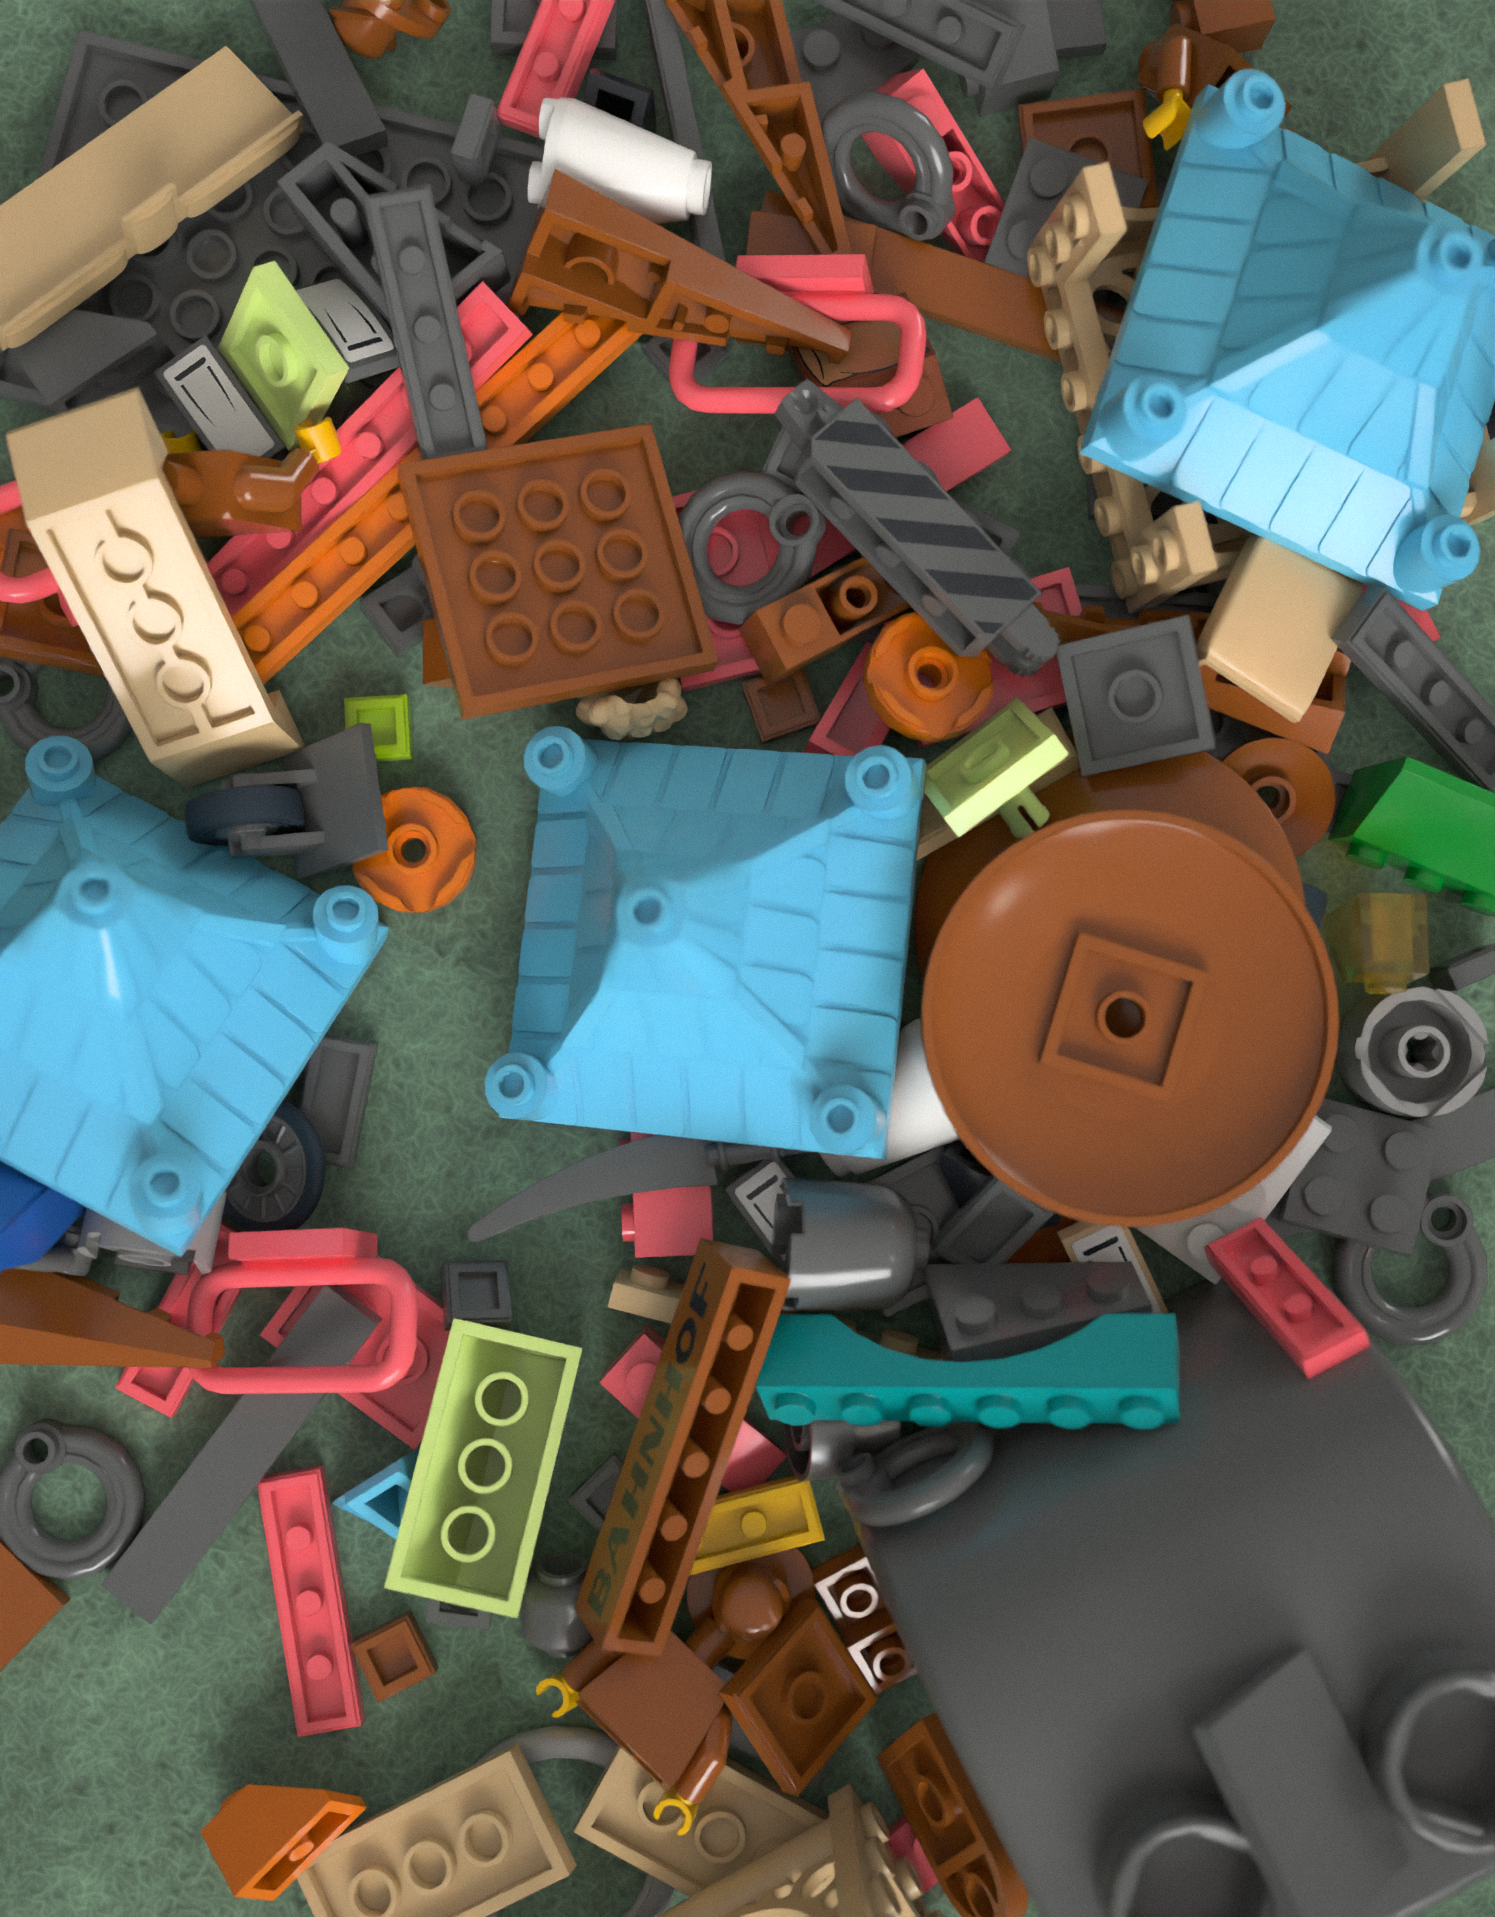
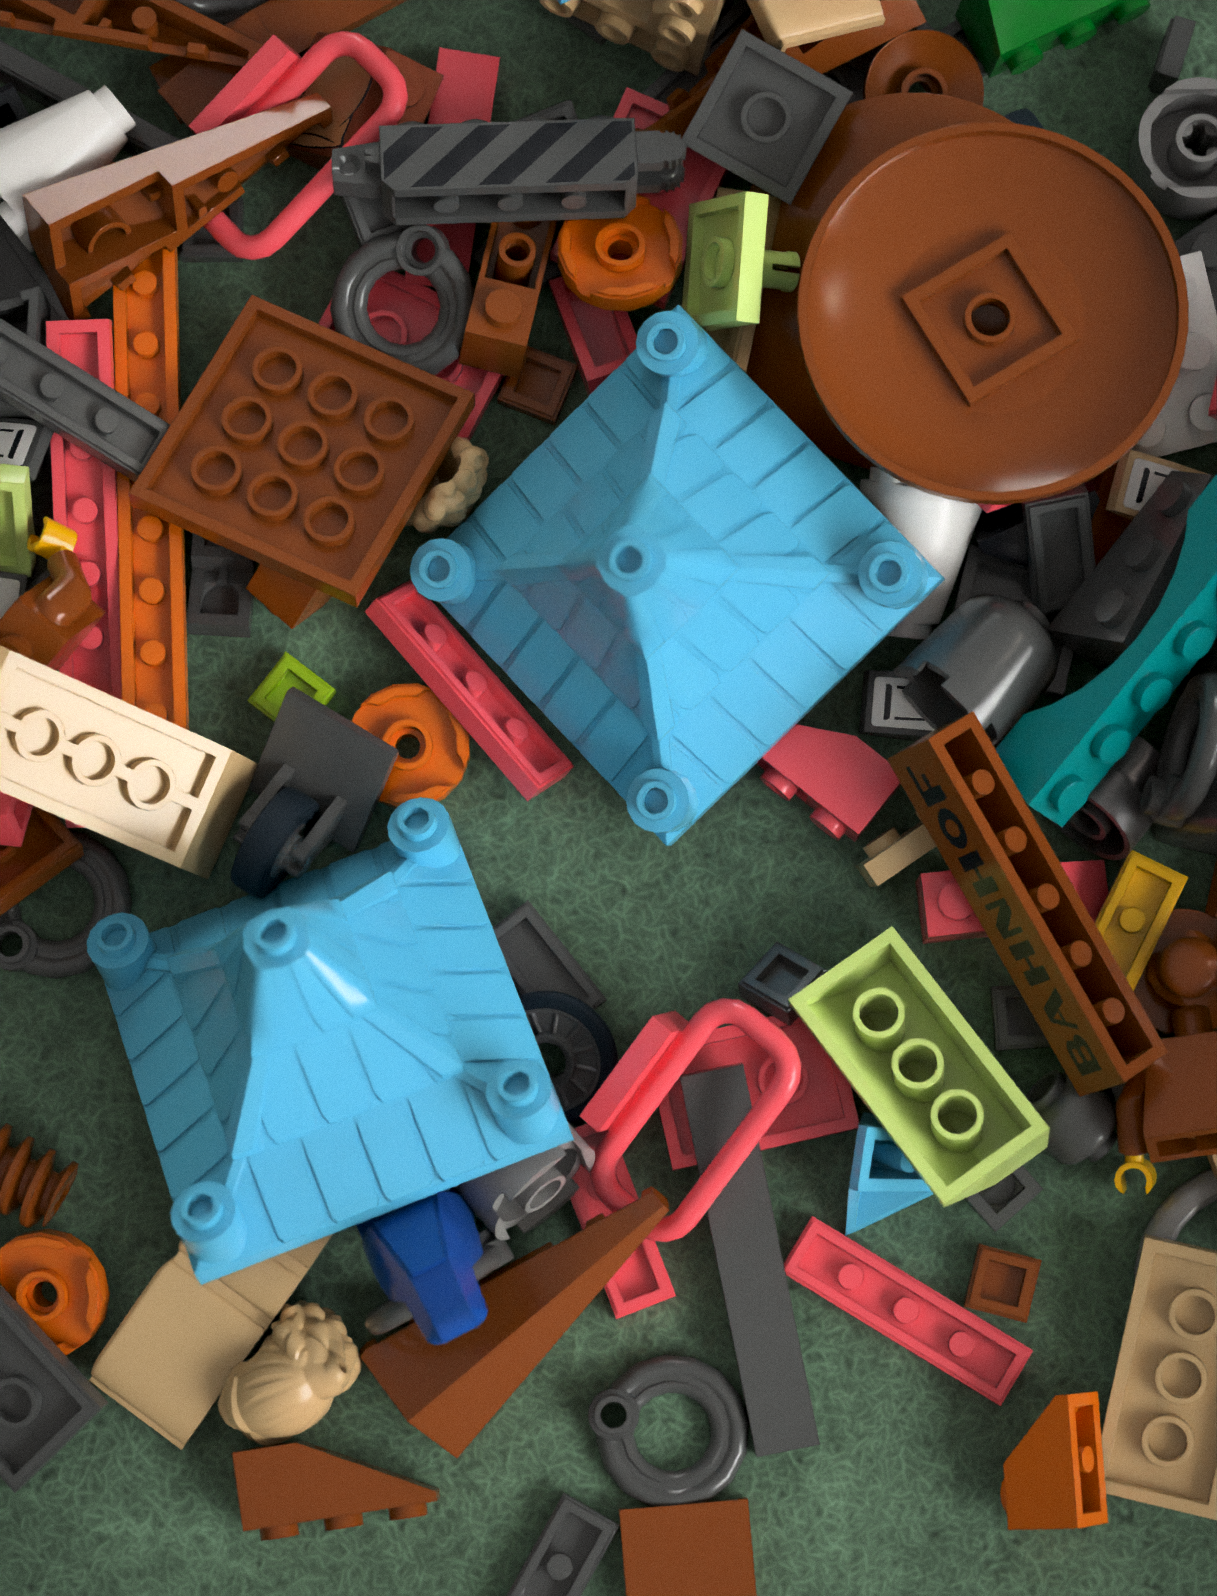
camera: 45 degrees left, 5 degrees down
(494, 863) = (469, 689): none -> coral tile
(627, 1169) = (788, 783): dark grey sword -> none
(1380, 940) = (1093, 98): clear yellow slope -> none

